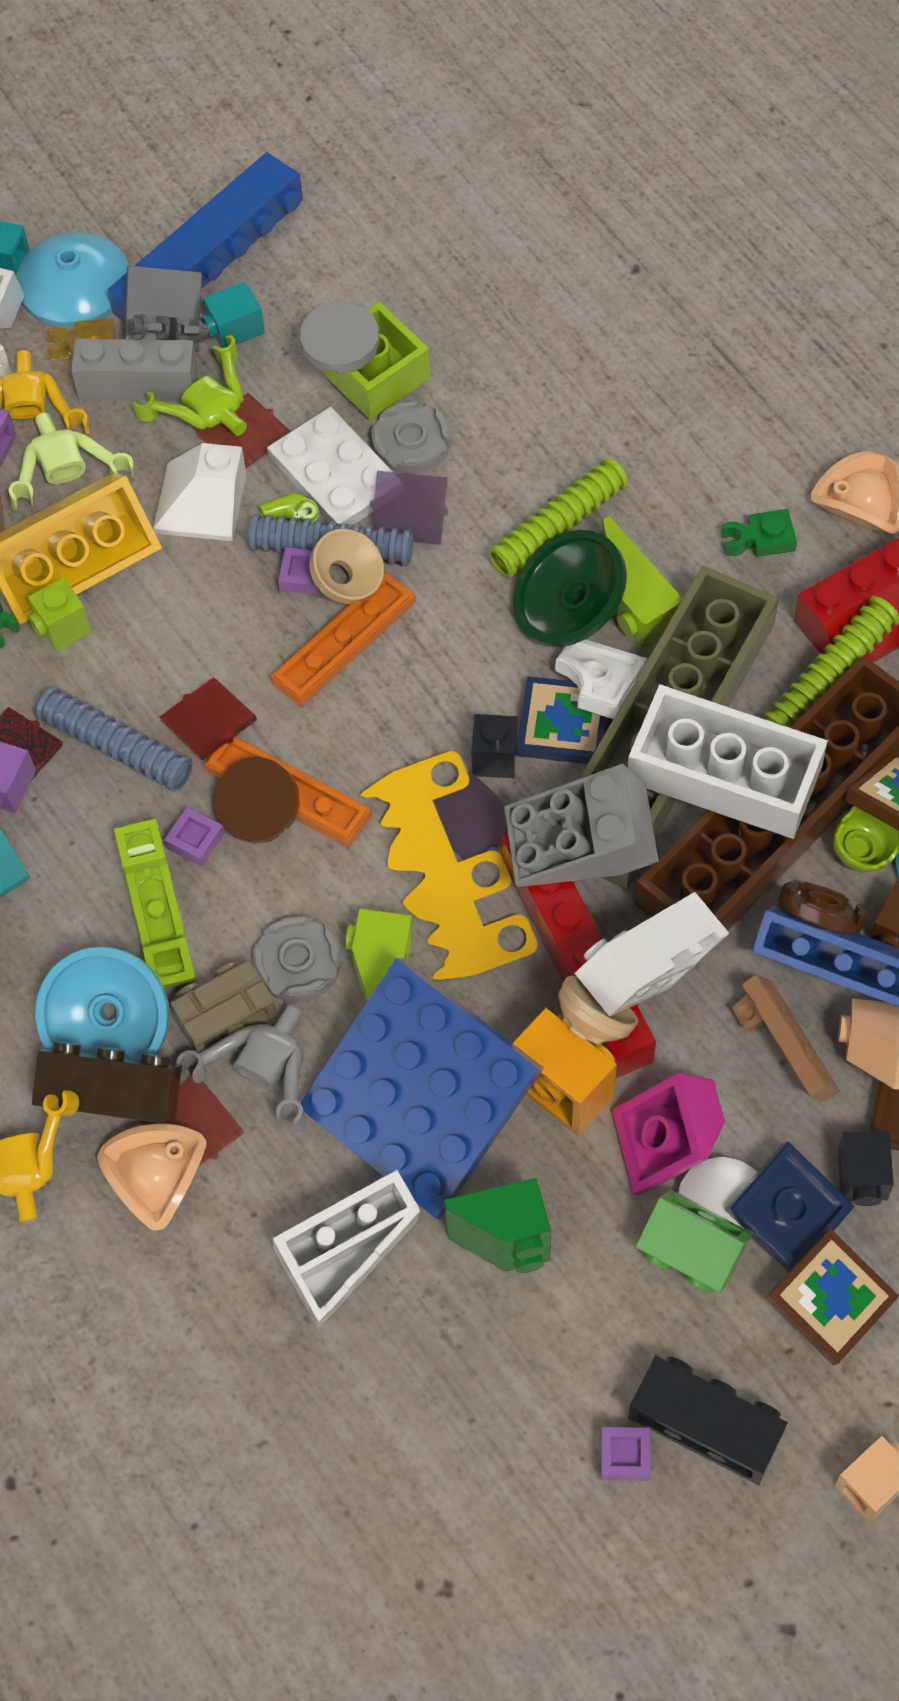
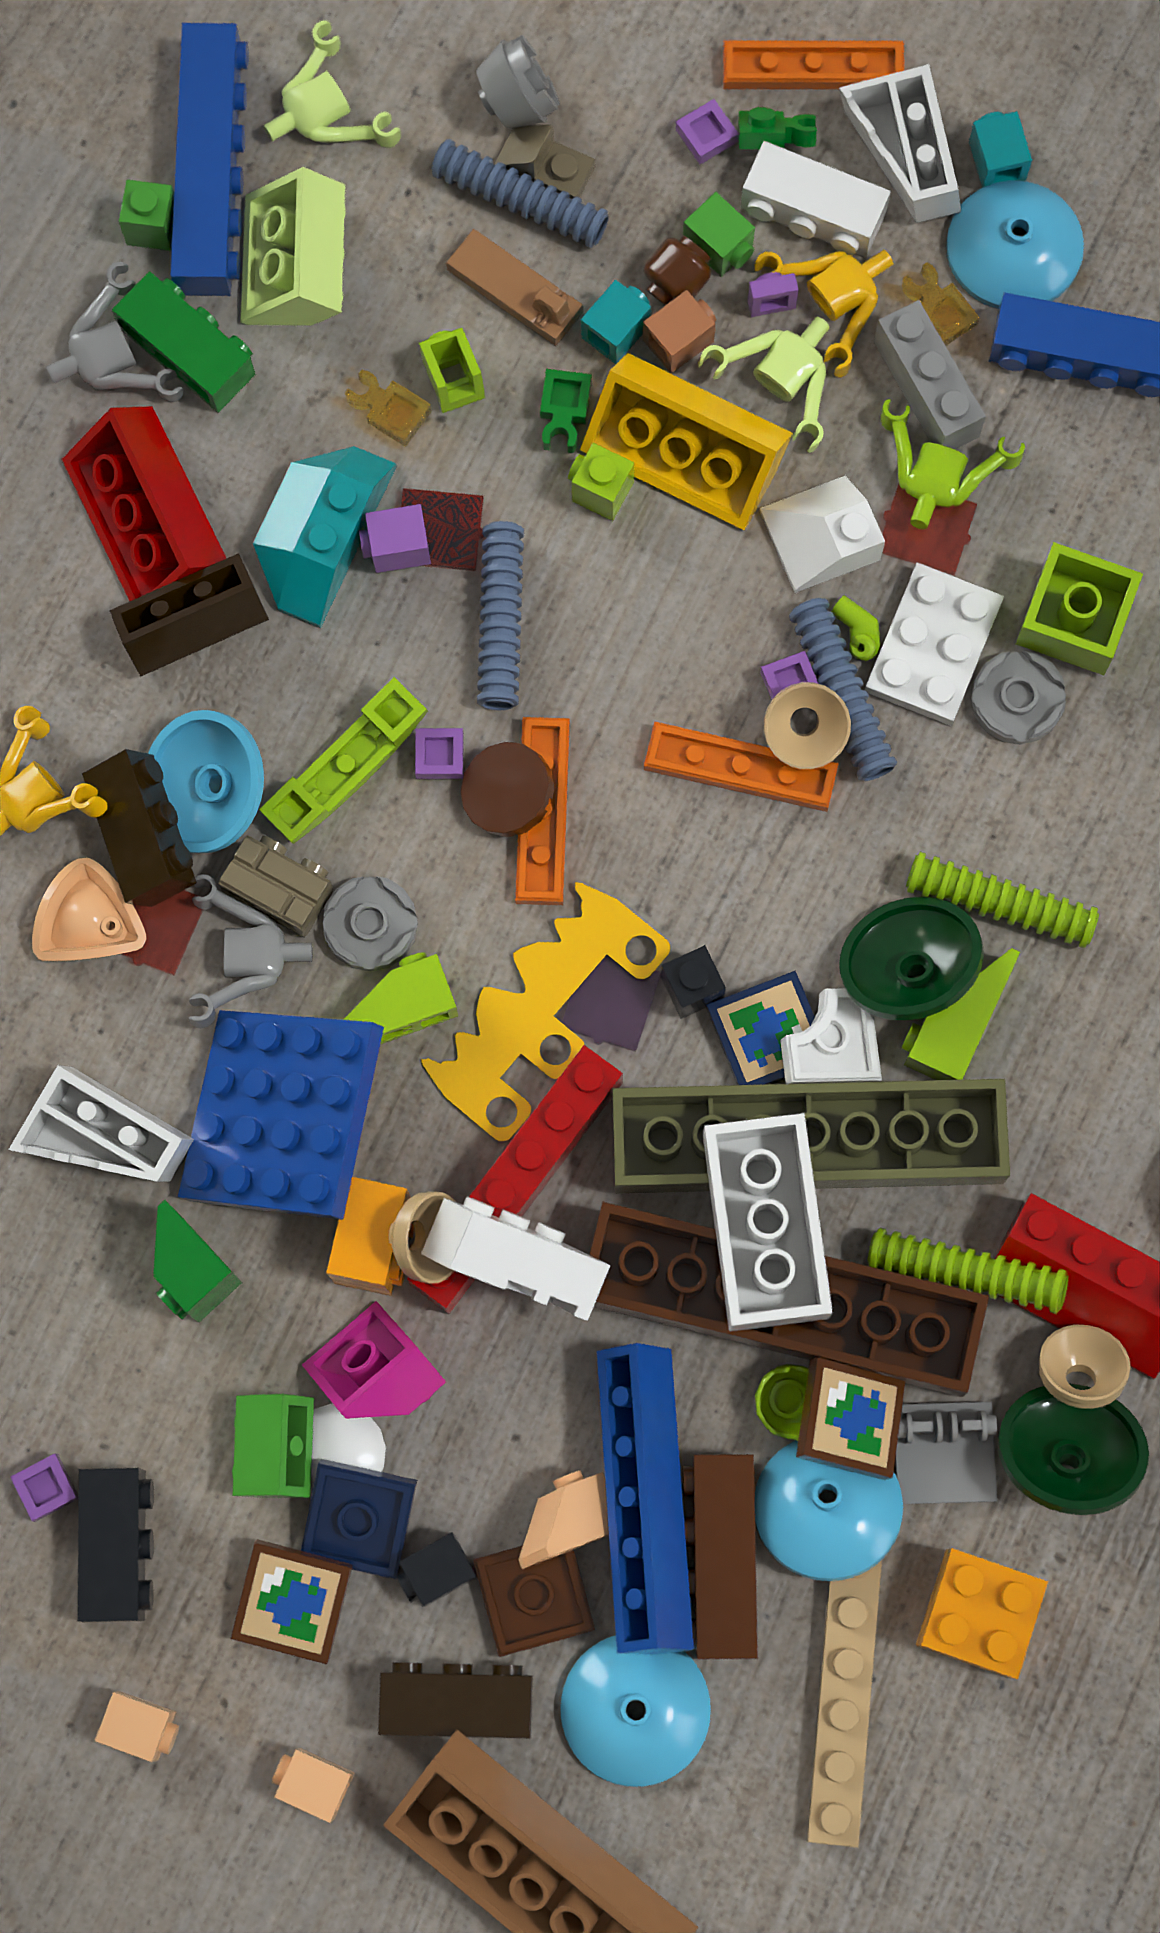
camera: 60 degrees right, 15 degrees up
(164, 305) = (1011, 362): hinge -> none
(208, 718) = (574, 690): clear red piece -> none
(234, 314) = (1055, 433): teal brick -> none
(339, 337) = (1067, 561): light grey tile -> none
(410, 503) = (926, 744): clear purple piece -> none
(582, 830) = (619, 1121): light grey slope -> none
(765, 532) = (1111, 1121): green plate -> none
(766, 1006) = (556, 1396): medium nougat hinge -> none
(822, 907) = (684, 1395): reddish brown tile -> none

